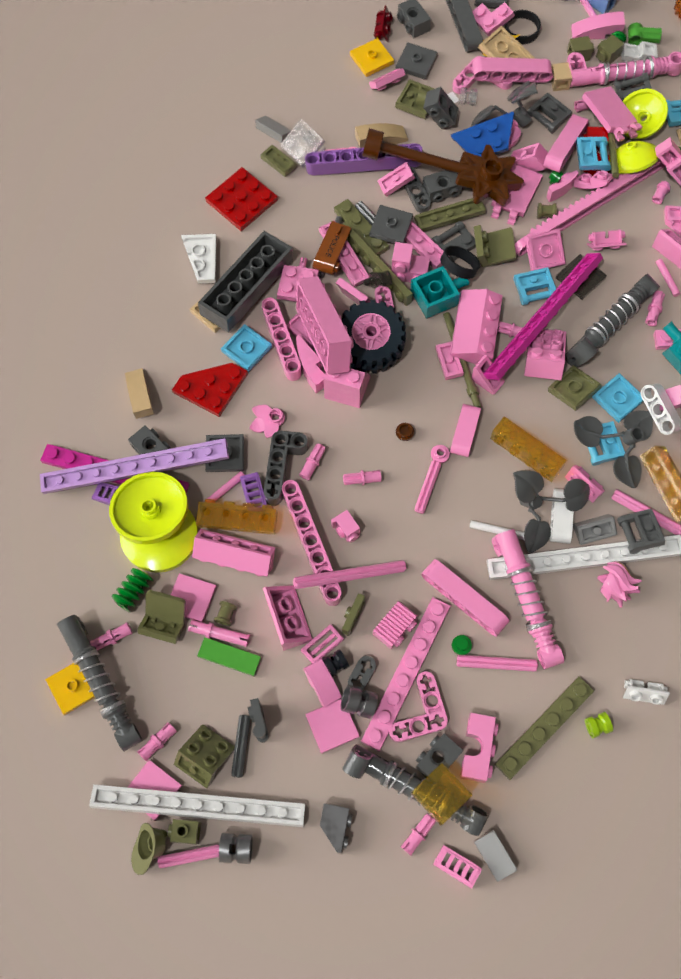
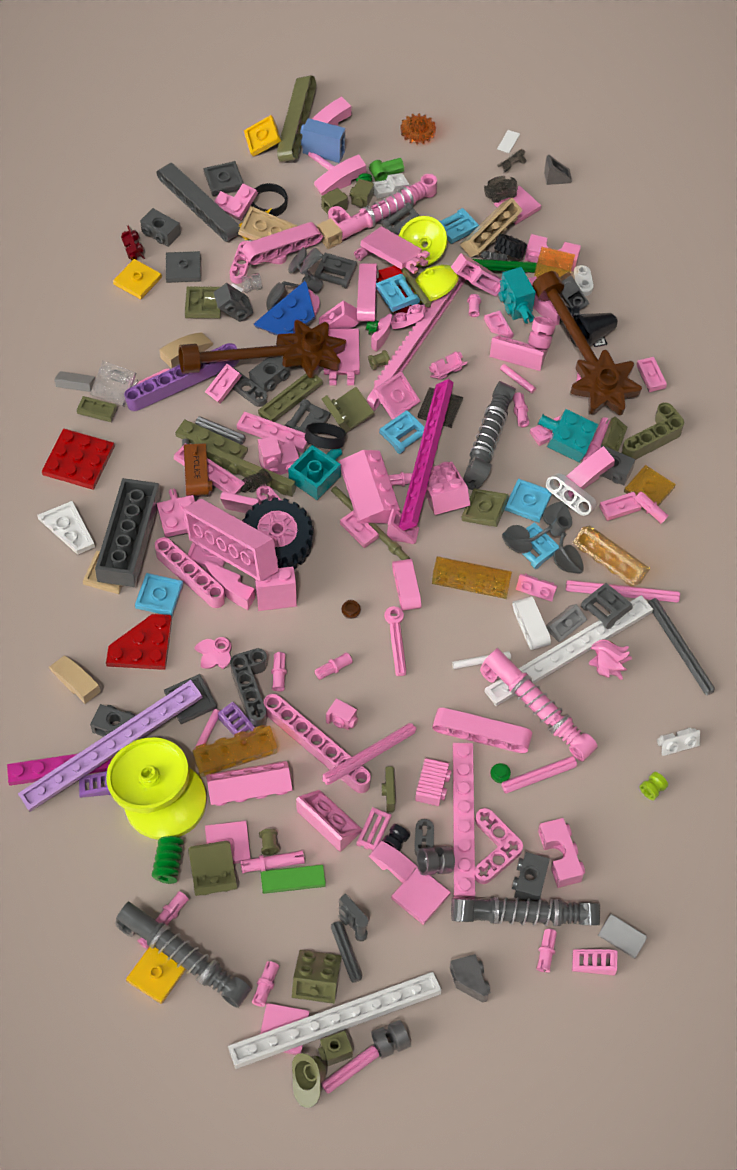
camera: 30 degrees left, 10 degrees down
(391, 224) = (241, 427): dark grey plate -> none
(393, 77) = (163, 294): bright pink plate -> none
(441, 794) = (551, 901): clear yellow tile -> none
(527, 487) = (492, 603): dark grey plant -> none
(544, 728) = (608, 811): olive plate -> none

